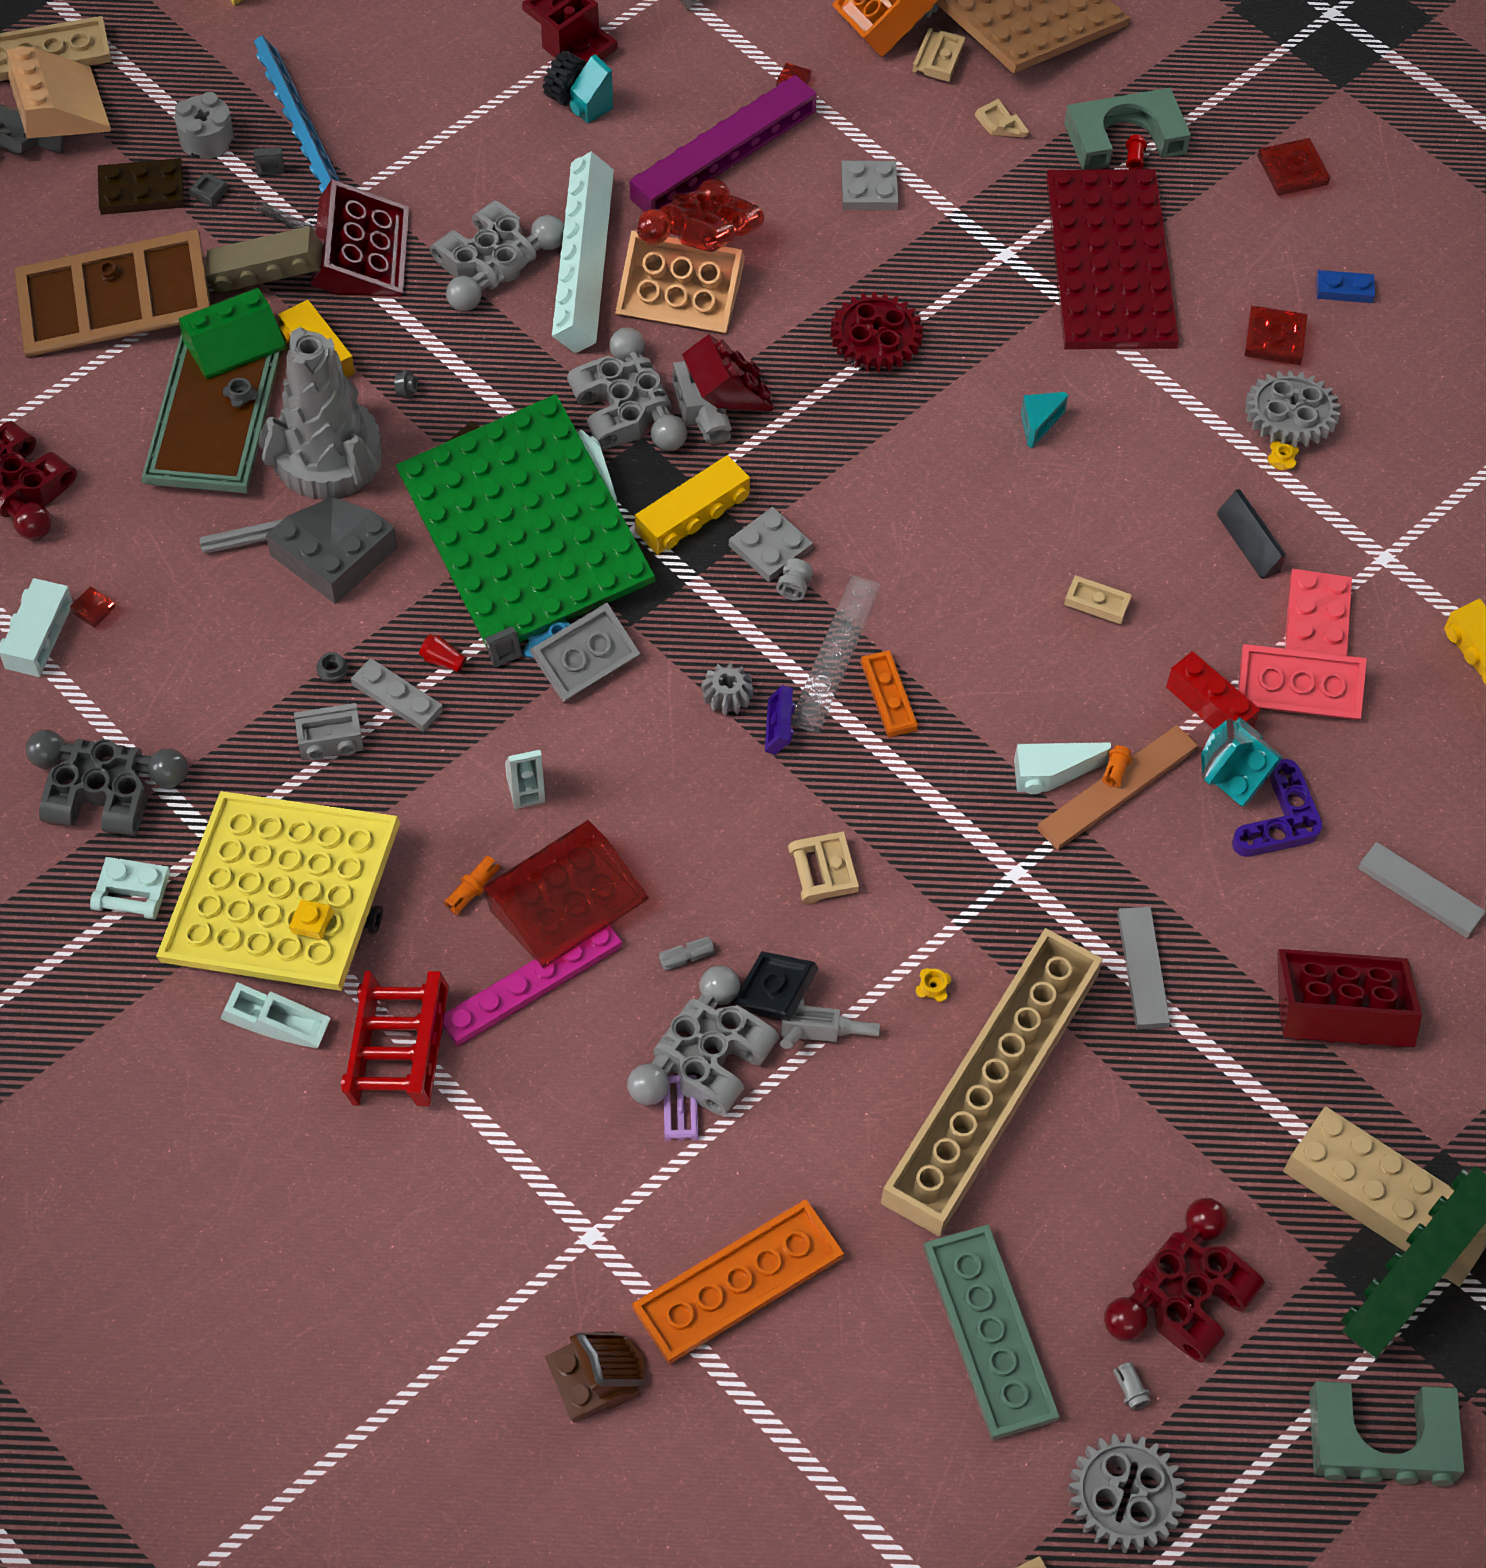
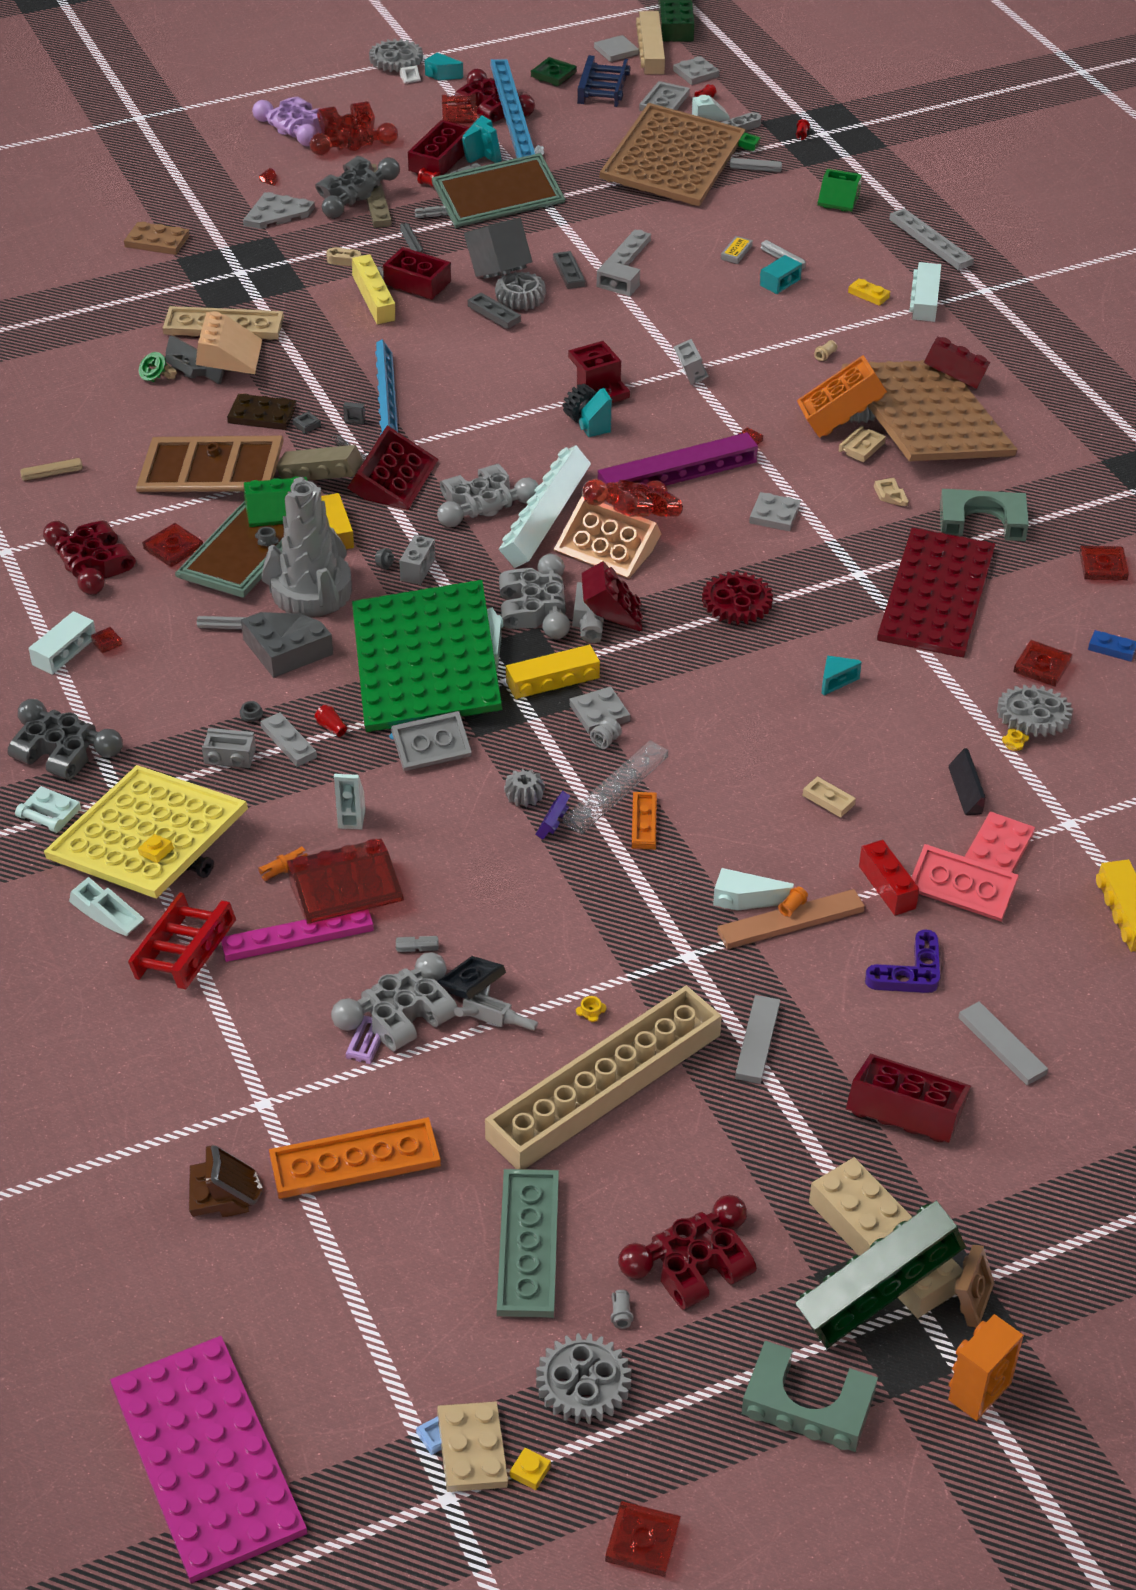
camera: 20 degrees right, 15 degrees down
(115, 432) = (172, 544): none -> clear red plate
(204, 125) = (319, 383): light grey brick -> none
(451, 376) = (417, 559): none -> light grey brick
(503, 647) = (375, 725): dark grey tile -> none
(834, 865) = (551, 914): tan plate -> none
(1136, 146) = (986, 527): red pin -> none
(1237, 760) = (886, 917): teal piece -> none

